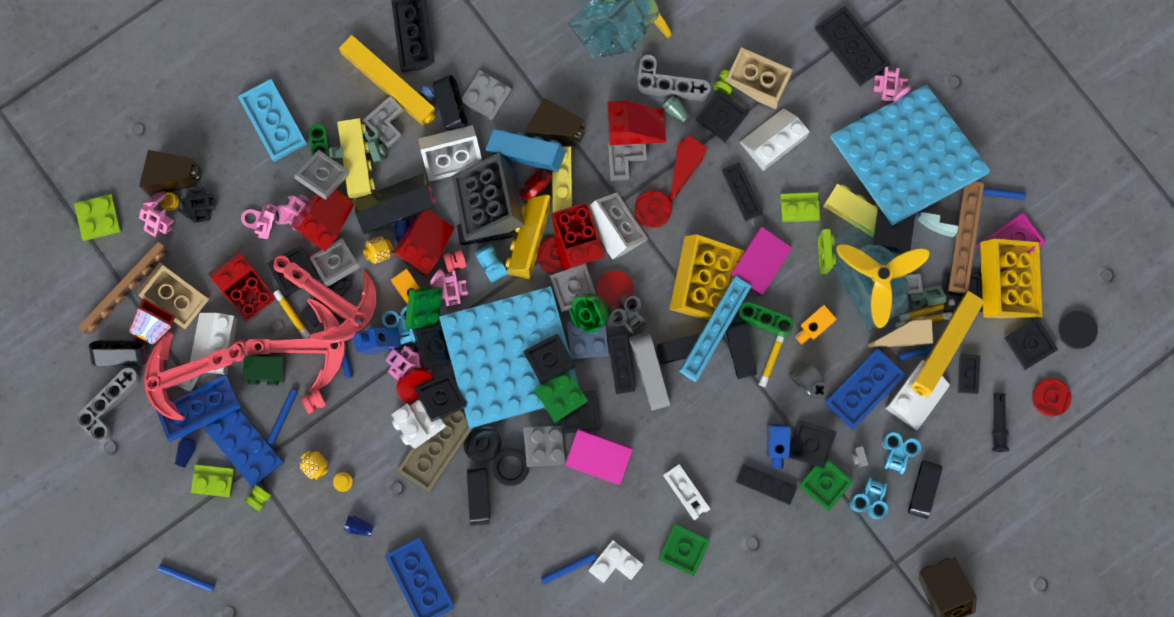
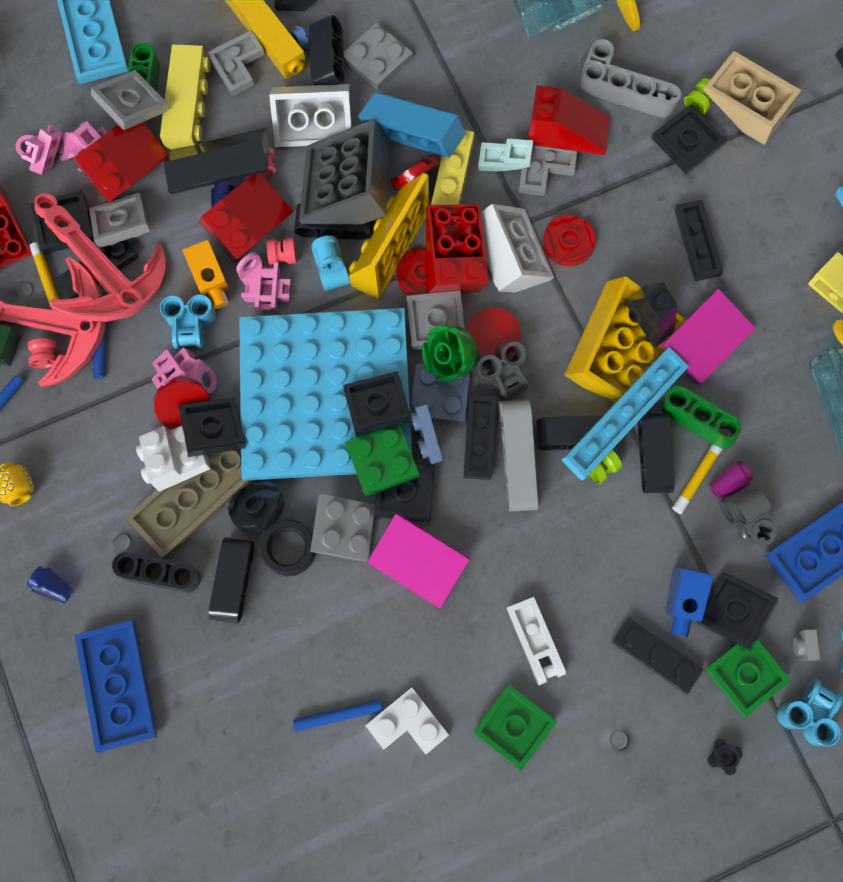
camera: 20 degrees right, 5 degrees down
(306, 370) = (42, 353): none -> coral wheel
(313, 401) = (38, 397): coral wheel -> none
(336, 154) = (158, 82): sand green plate -> none
(342, 482) = (47, 517): yellow plate -> none
(368, 341) = (142, 329): blue torso -> none
(376, 148) = (215, 91): sand green plate -> none
(378, 250) = (181, 216): yellow head -> none
(418, 498) = (144, 565): none -> black beam
(423, 307) = (219, 299): green plate -> none
(431, 347) = (218, 357): black plate -> none
(556, 124) = (465, 95): dark brown slope -> none
(587, 375) = (427, 443): none -> sand blue plate
(596, 157) = (505, 157): none -> light aqua slope
(676, 109) = (626, 116): sand green cone -> none
(688, 158) = (632, 182): red slope -> none
(712, 365) = (609, 464): none -> lime wheel
(720, 254) = (654, 312): none -> black slope
(775, 138) = (758, 181): white slope -> none
(793, 357) = (731, 479): none -> magenta cone
(799, 207) = (775, 277): lime plate -> none
(822, 318) = (782, 432): light orange torso -> none
(825, 539) = (733, 753): none -> black plate
(826, 257) = (805, 339): lime plate -> none

